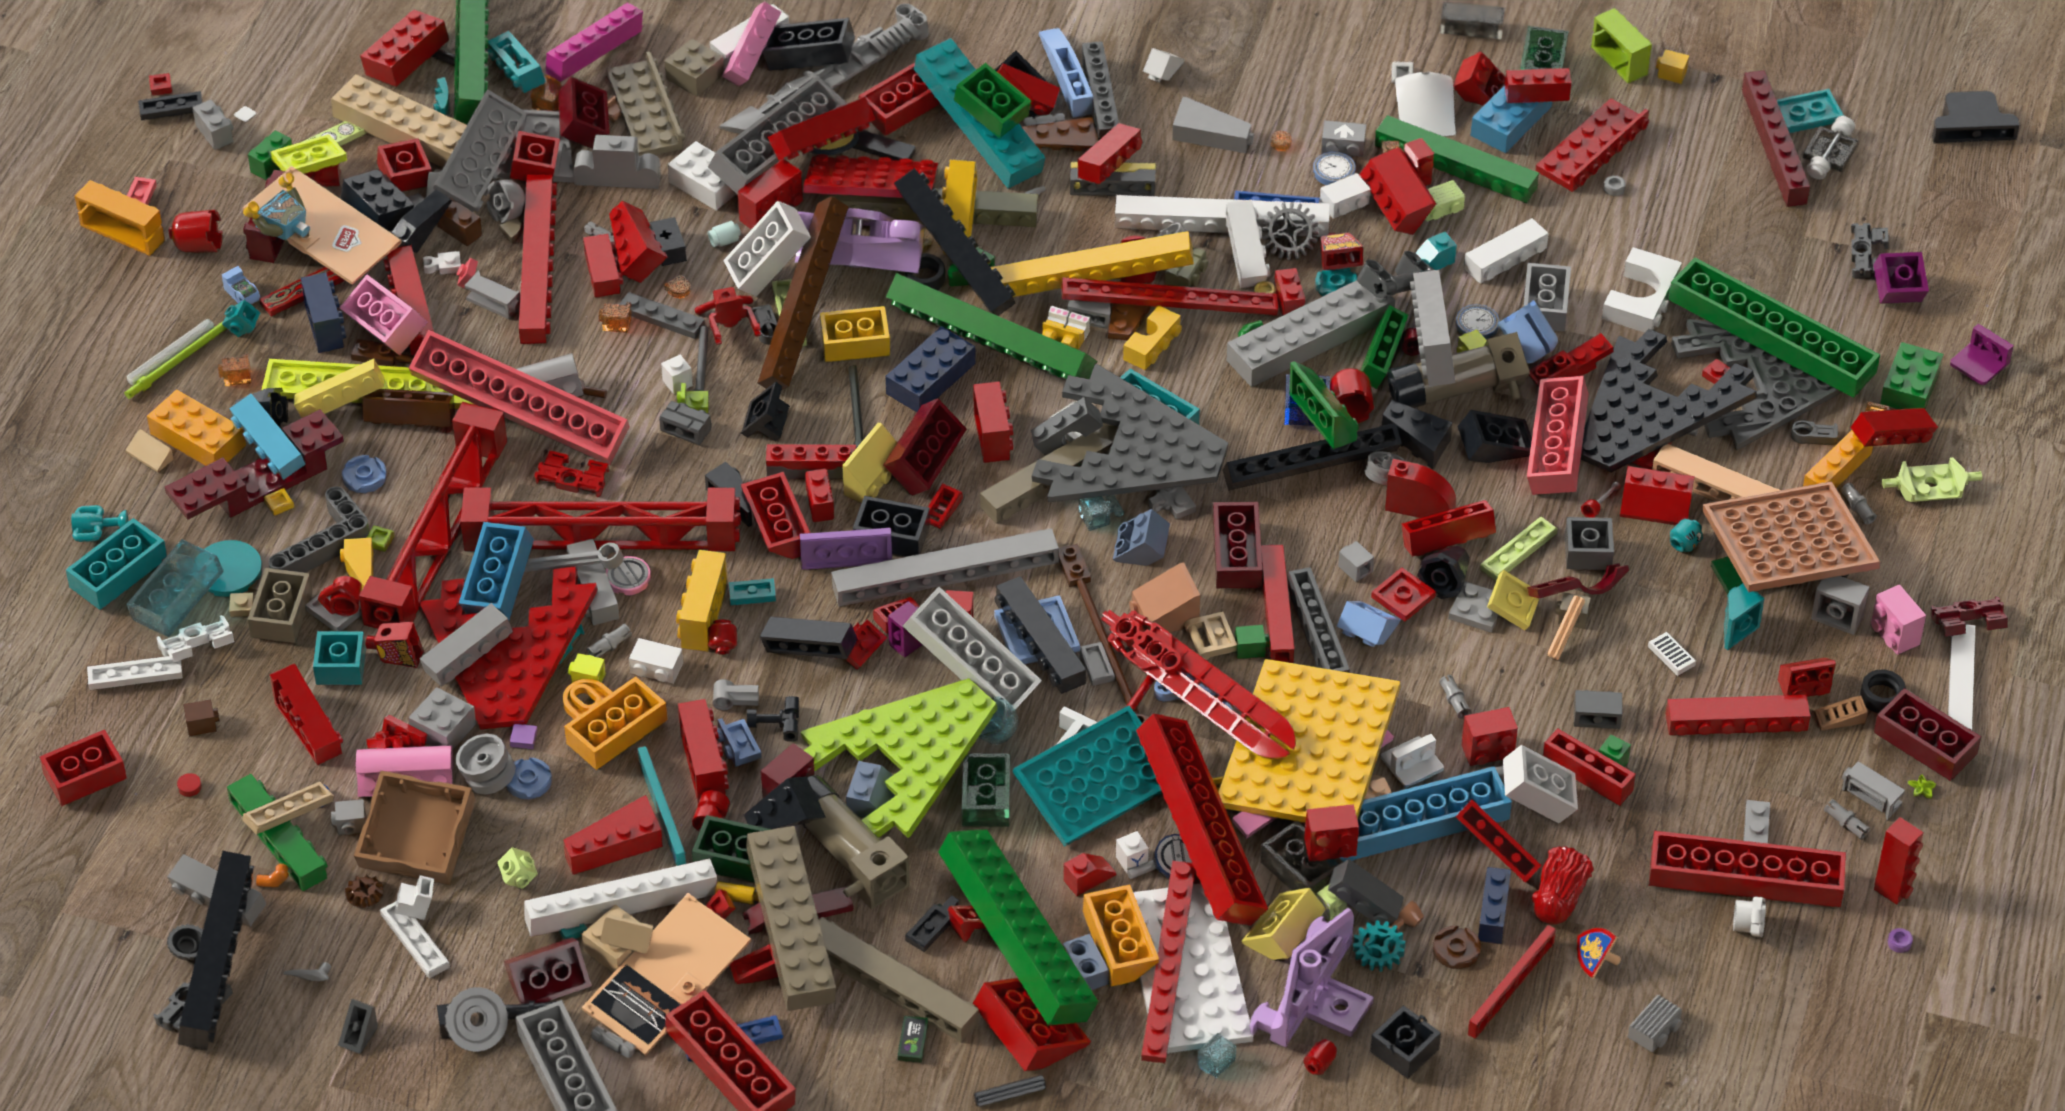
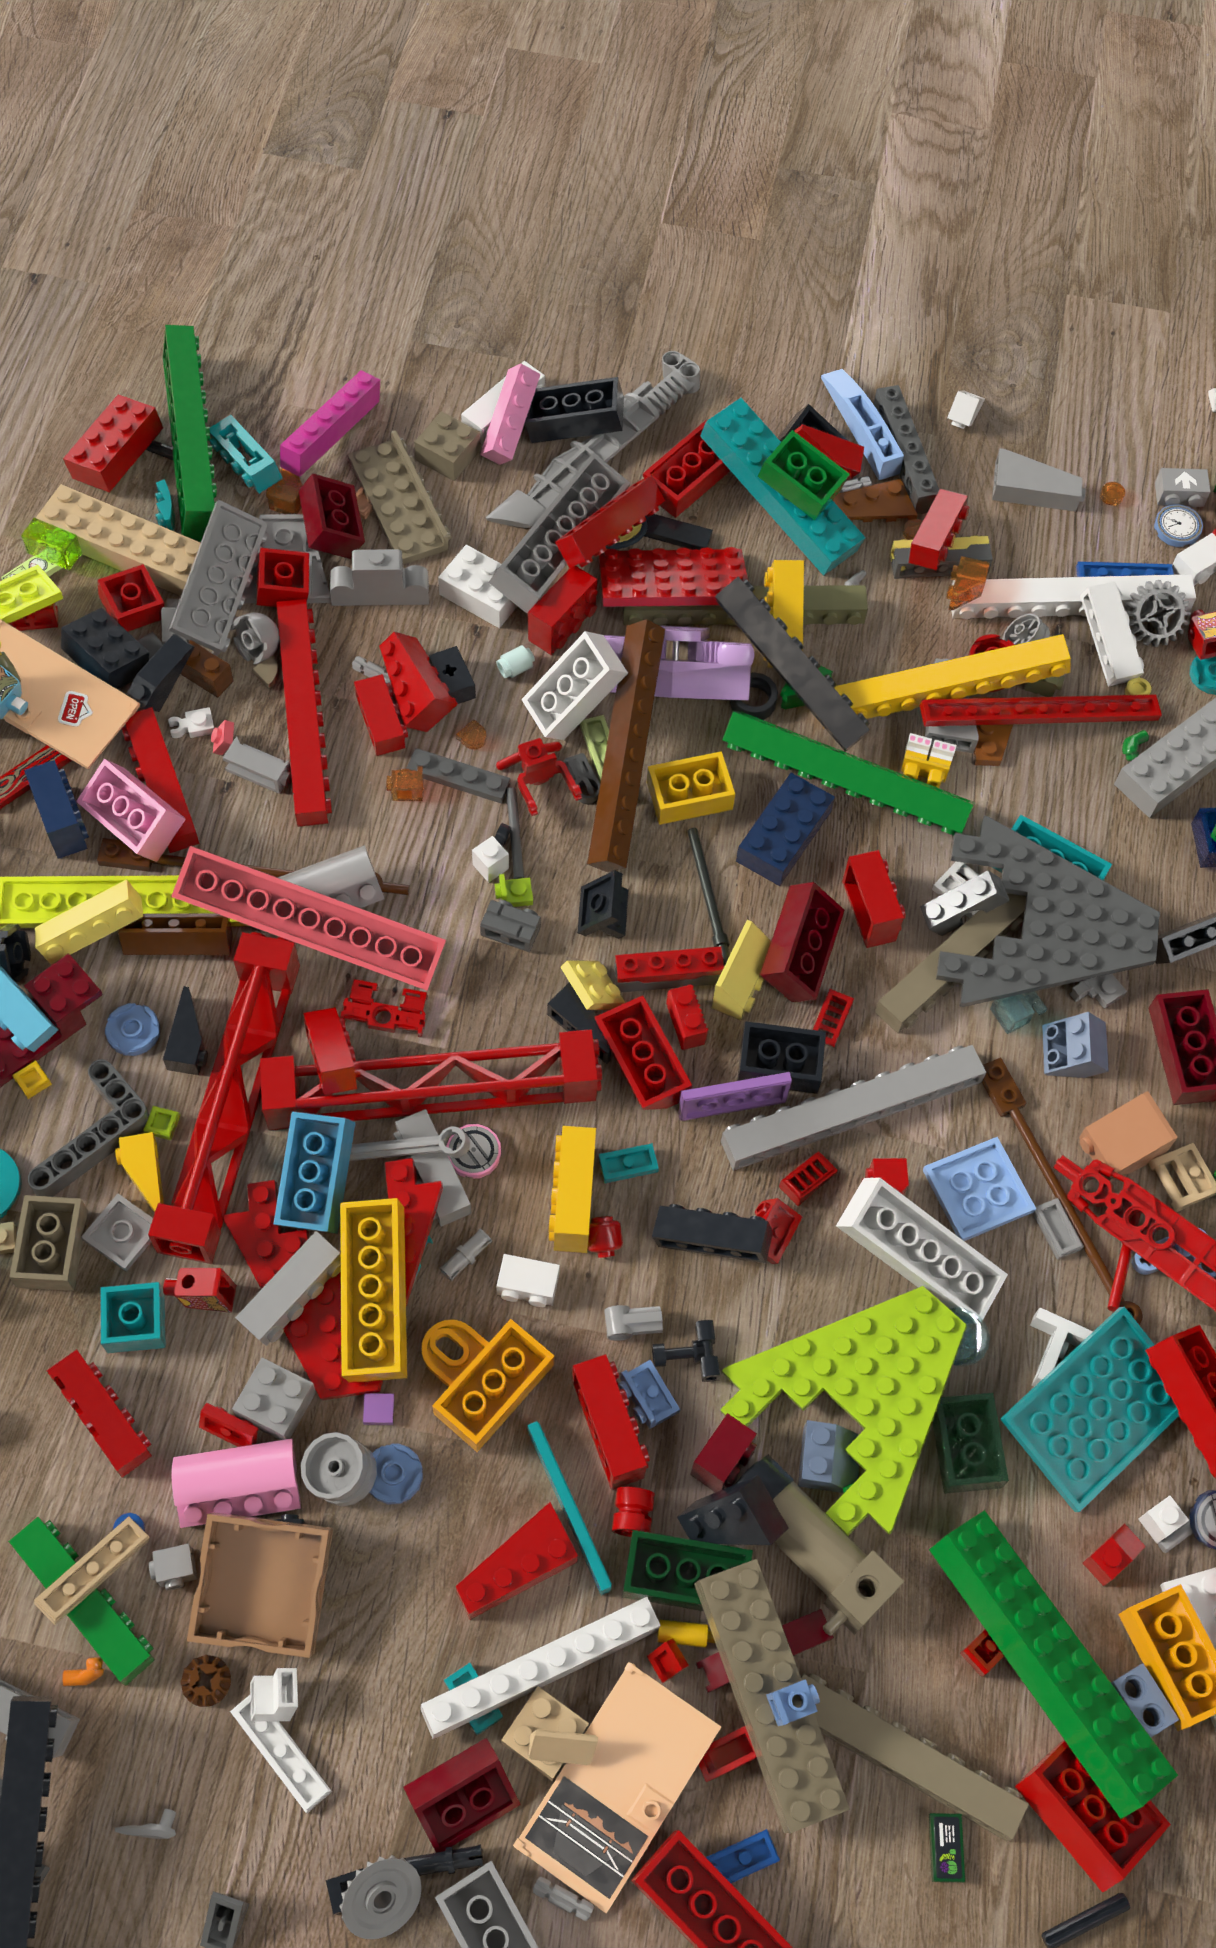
camera: 10 degrees left, 15 degrees up
(342, 120) = (51, 543): none -> clear neon green brick
(344, 596) = (128, 1228): red piece -> none
(385, 740) = (206, 1439): red plate -> none
(404, 486) = (185, 1044): none -> black slope
(517, 868) = (401, 1630): yellowish green brick -> none
(522, 490) = (331, 1051): none -> red brick
(529, 645) = (373, 1290): none -> yellow brick
(587, 668) = (445, 1303): neon yellow brick -> none
(691, 357) = (502, 833): none -> black tile
(743, 463) = (592, 984): none -> light yellow plate
(802, 909) = (782, 1705): none -> medium blue brick
(899, 637) = (827, 1208): magenta brick -> none
(931, 925) = (939, 1659): black hinge -> none
(1040, 635) = (991, 1204): black brick -> none
(1125, 195) = (969, 581): none -> clear orange slope
(1162, 328) = (1036, 748): yellow arch -> none
(1288, 290) = (1173, 697): red piece -> none

